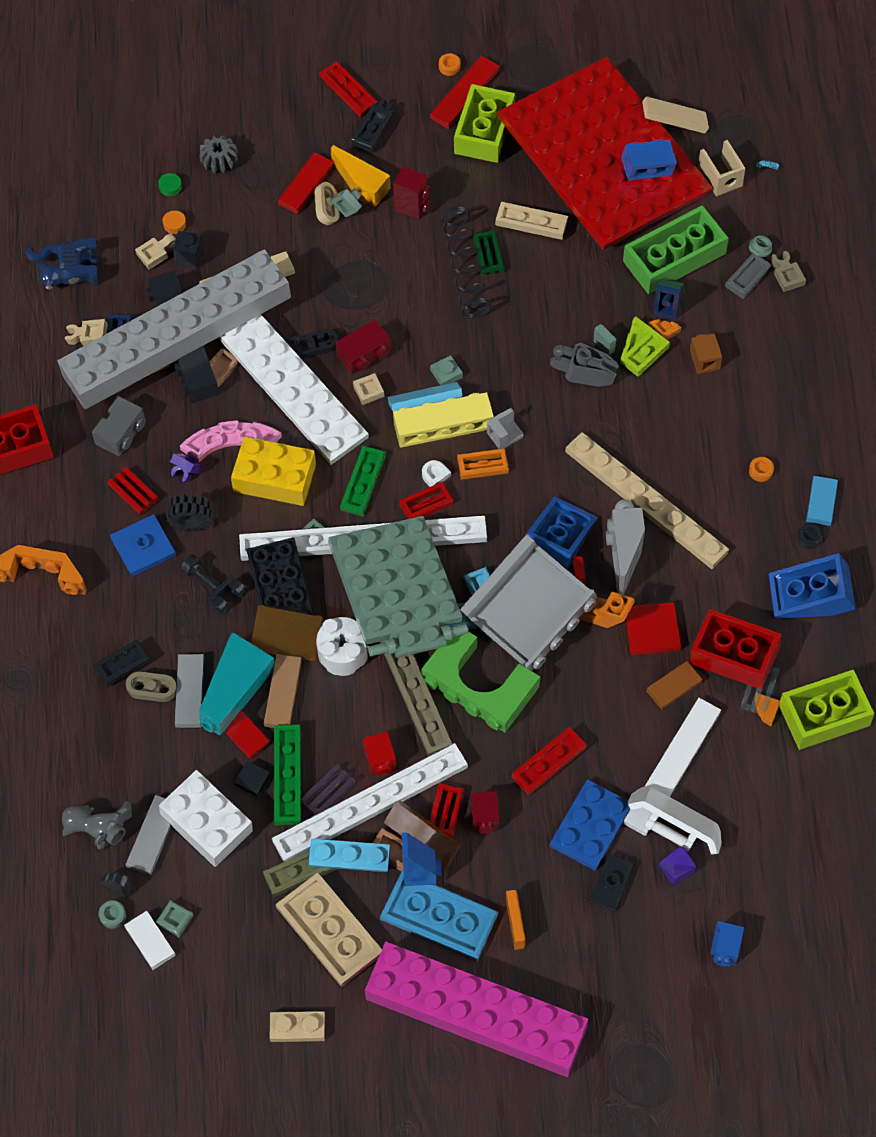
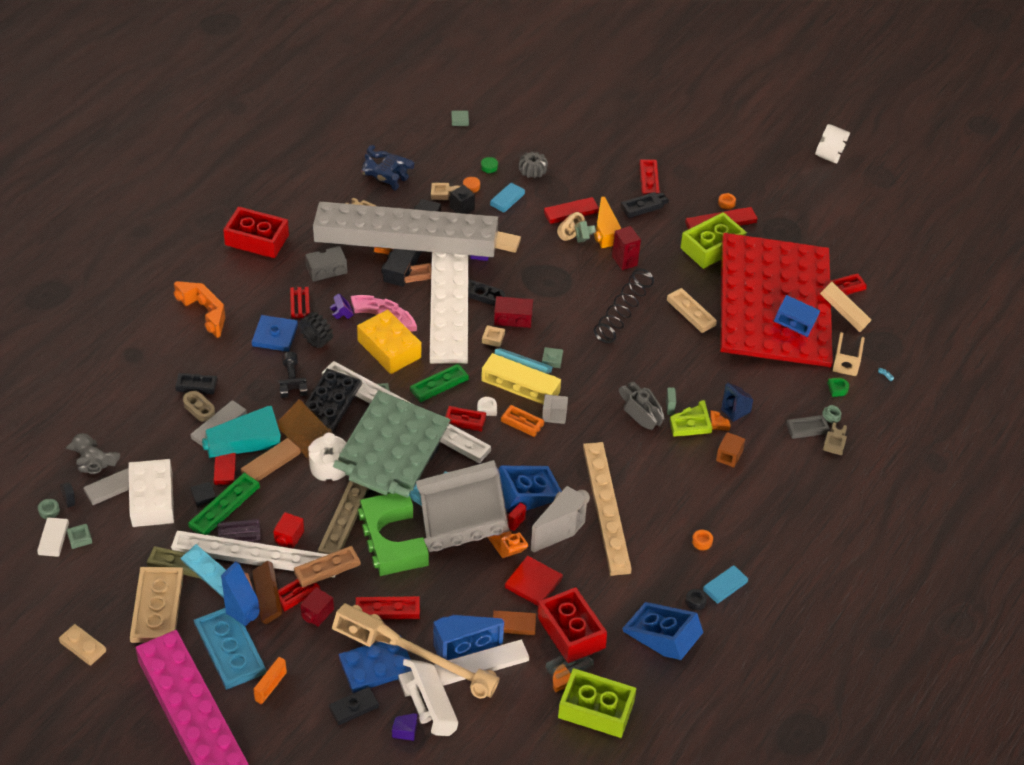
camera: 35 degrees right, 15 degrees down
(83, 146) = (460, 118): none -> sand green tile
(226, 212) = (507, 197): none -> dark azure tile
(456, 763) = (327, 566): none -> medium nougat tile
(491, 267) = (641, 321): dark green tile -> none
(561, 797) = (369, 628): none -> tan bar
(651, 738) = (466, 635): none -> blue slope
(664, 77) = (849, 288): none -> red tile
(675, 249) = (770, 378): bright green brick -> none
(737, 210) = (838, 386): none -> green tile

